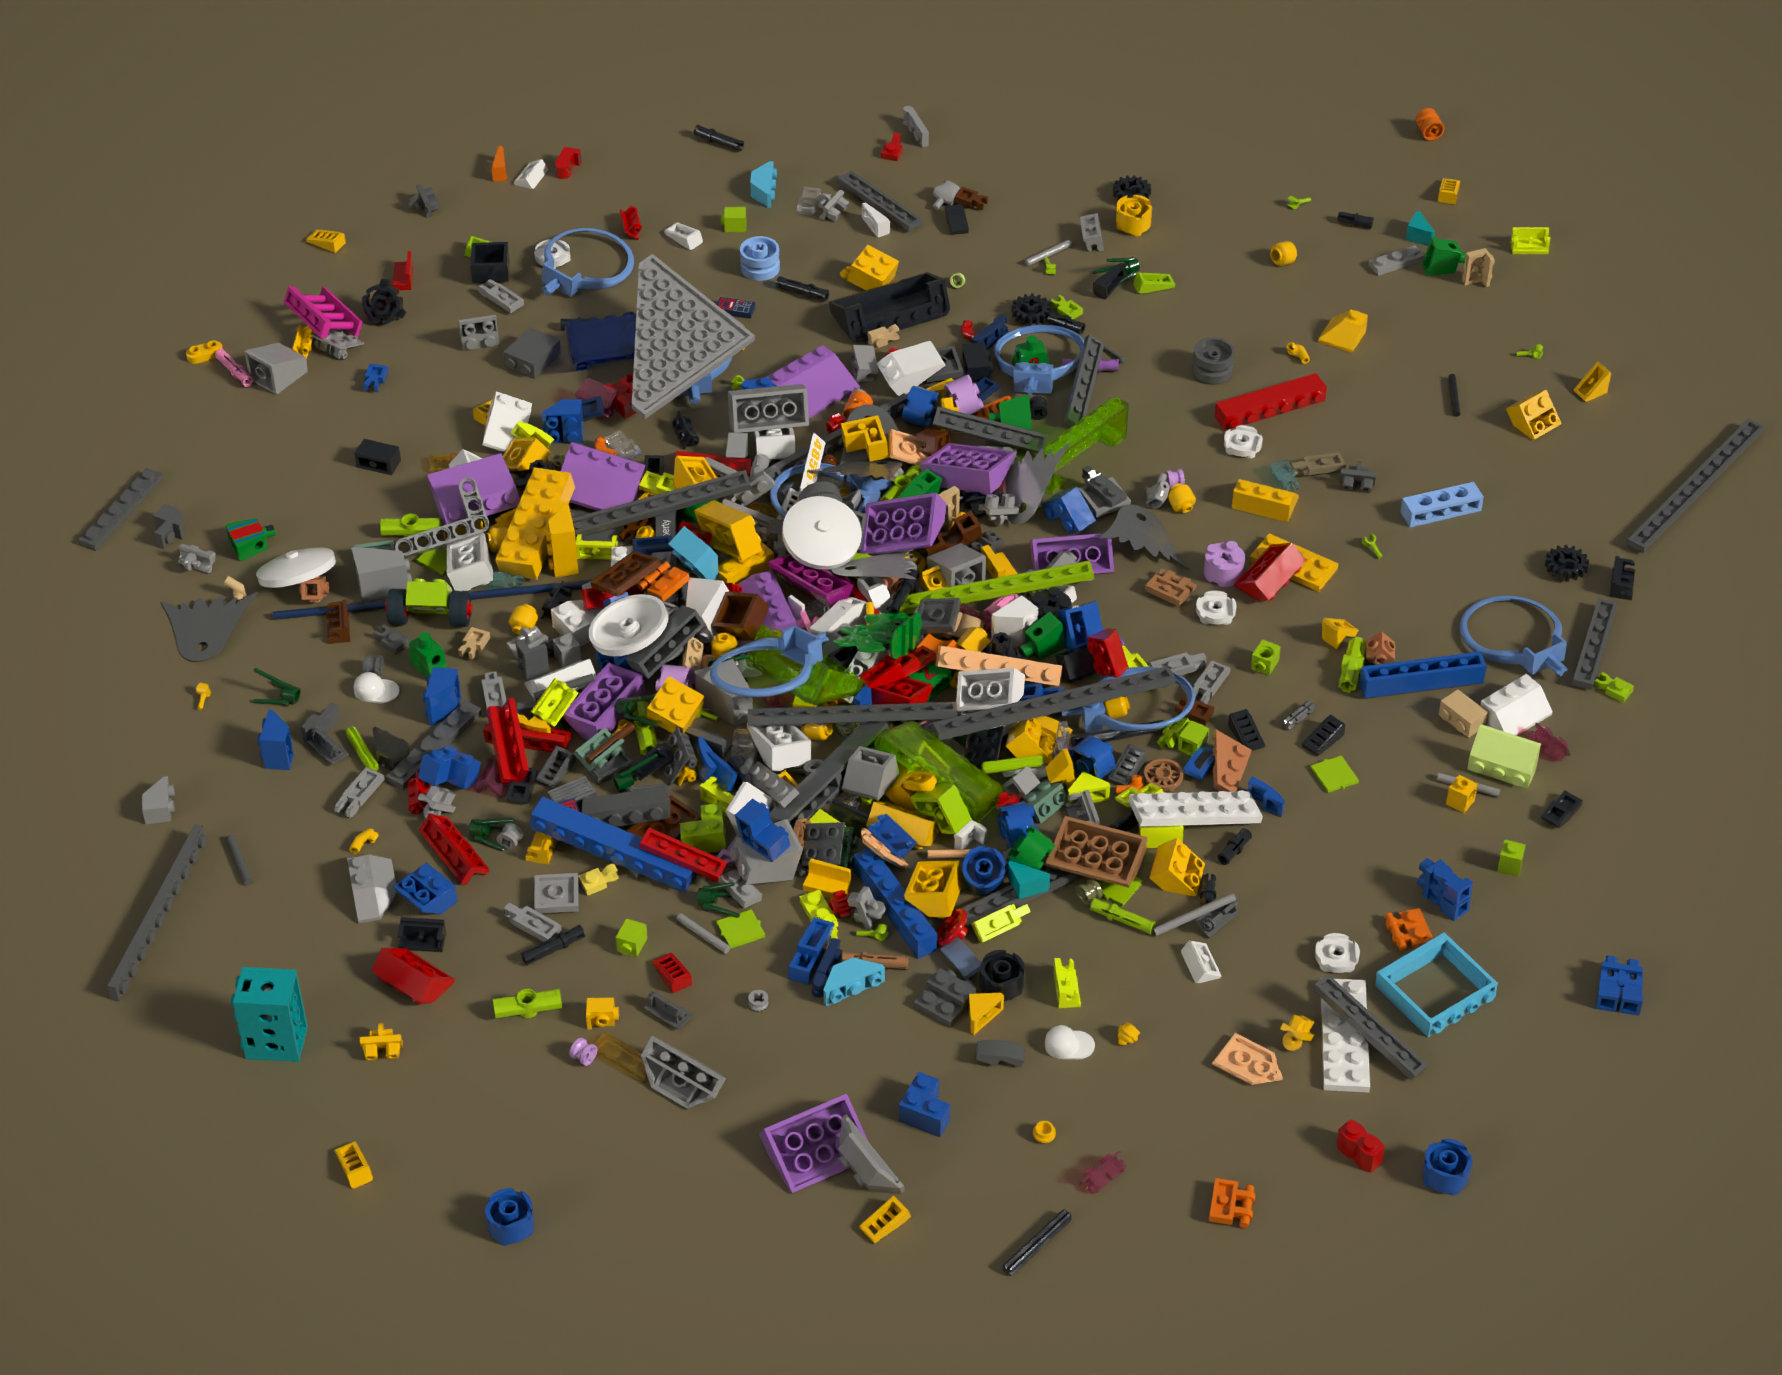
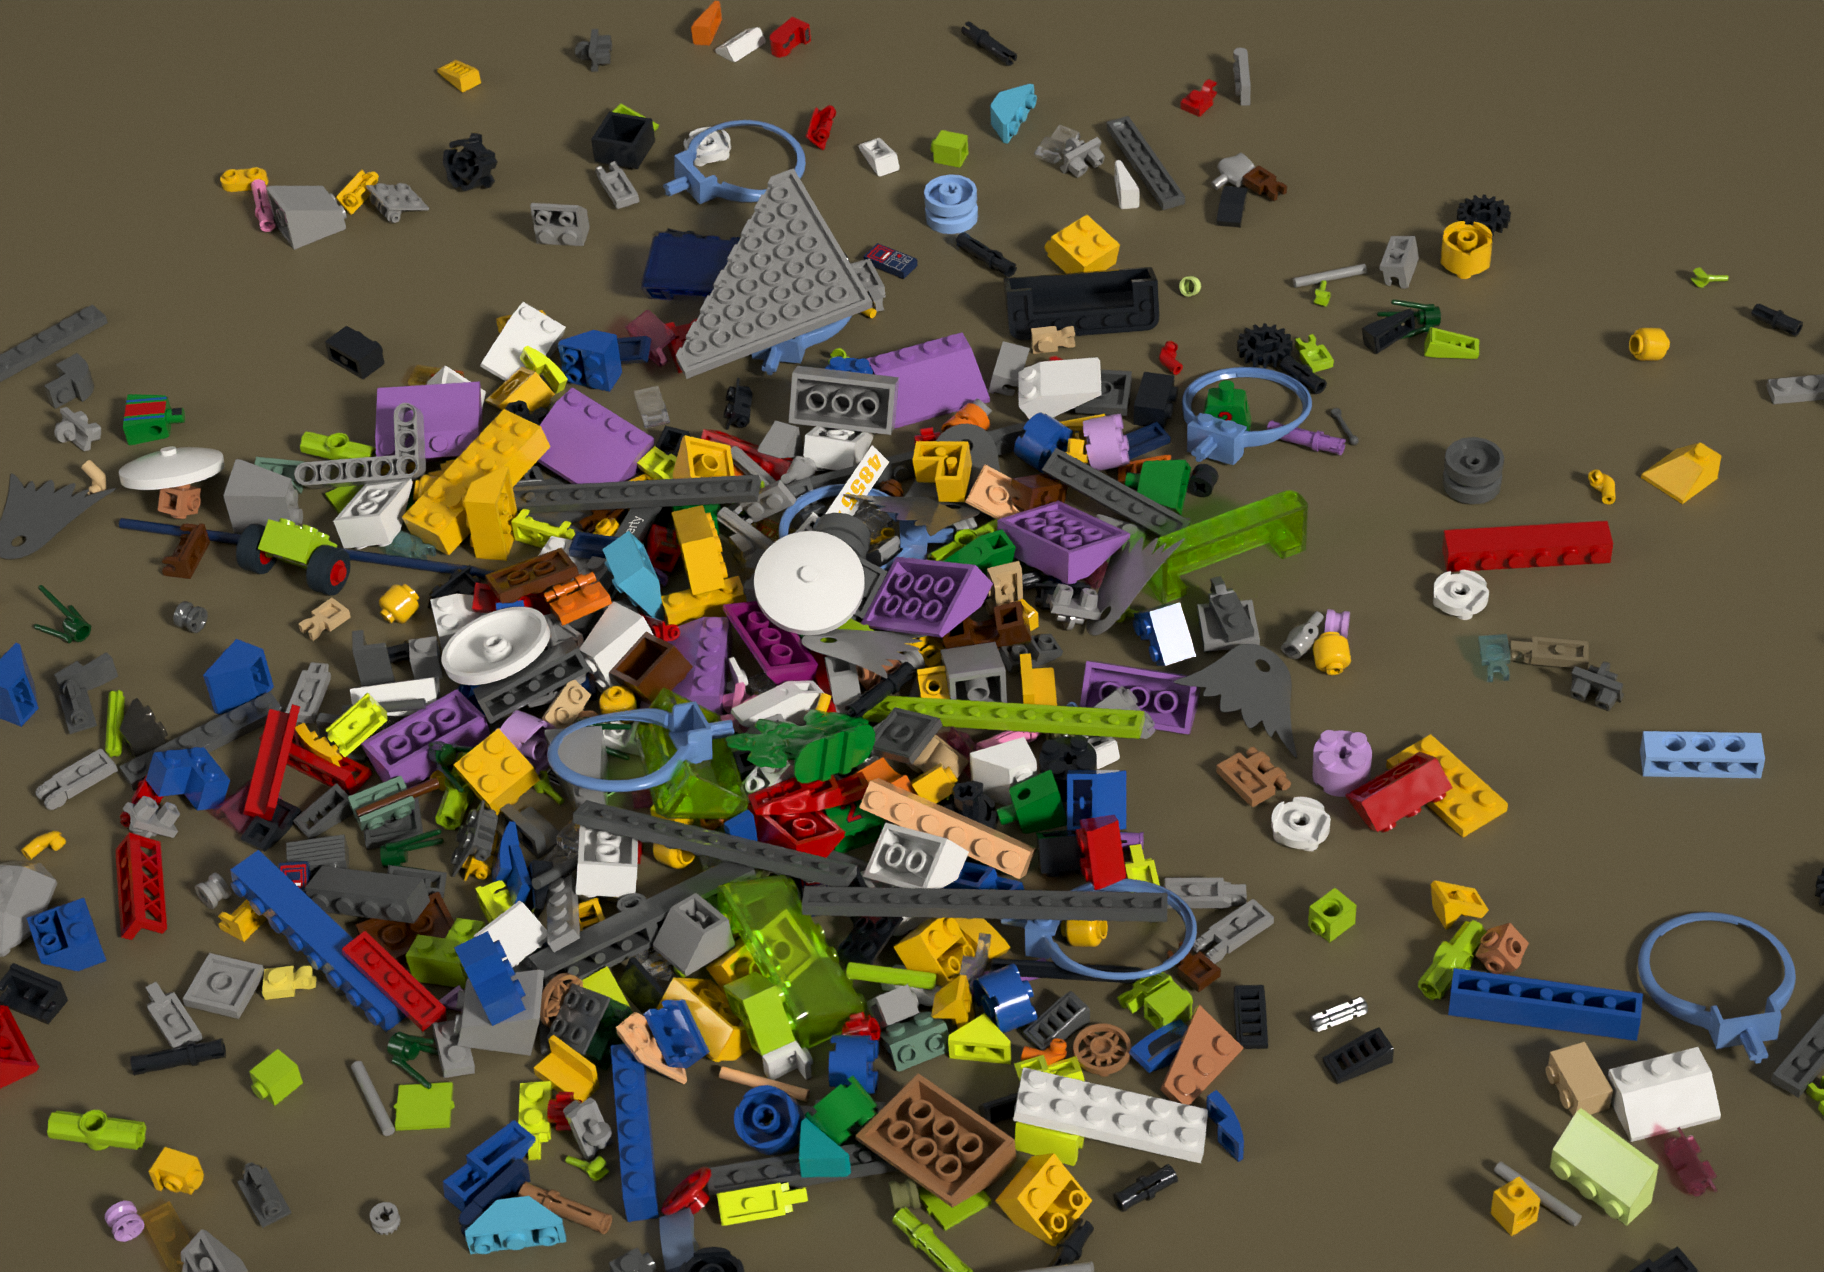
camera: 25 degrees right, 0 degrees up
(319, 321) = (376, 165): dark pink fence -> none
(373, 689) = (177, 648): white cap -> none
(374, 375) = (414, 250): blue plate -> none
(393, 641) = (236, 589): dark grey plate -> none
(403, 273) = (522, 133): red panel -> none
(426, 654) = (253, 612): green torso -> none
(481, 828) = (188, 870): dark green plant -> none
(532, 353) = (609, 264): dark grey brick -> none
(532, 638) = (390, 632): light grey hips -> none
(601, 446) = (625, 404): orange arm -> none
(664, 756) = (450, 834): black hinge -> none
(677, 983) = (302, 1159): red slope -> none
(919, 781) = (743, 966): yellow plate -> none
(935, 887) = (689, 1127): yellow slope -> none
(992, 332) = (1194, 366): dark blue hinge -> none
(1082, 808) = (959, 1071): light grey hinge -> none
(1084, 380) = (1282, 454): dark grey plate -> none
(1264, 500) = (1447, 684): yellow slope -> none
(1334, 774) = (1348, 1118): lime piece -> none
(1365, 542) = (1572, 790): lime hand -> none
(1454, 395) = (1800, 599): black bar -> none

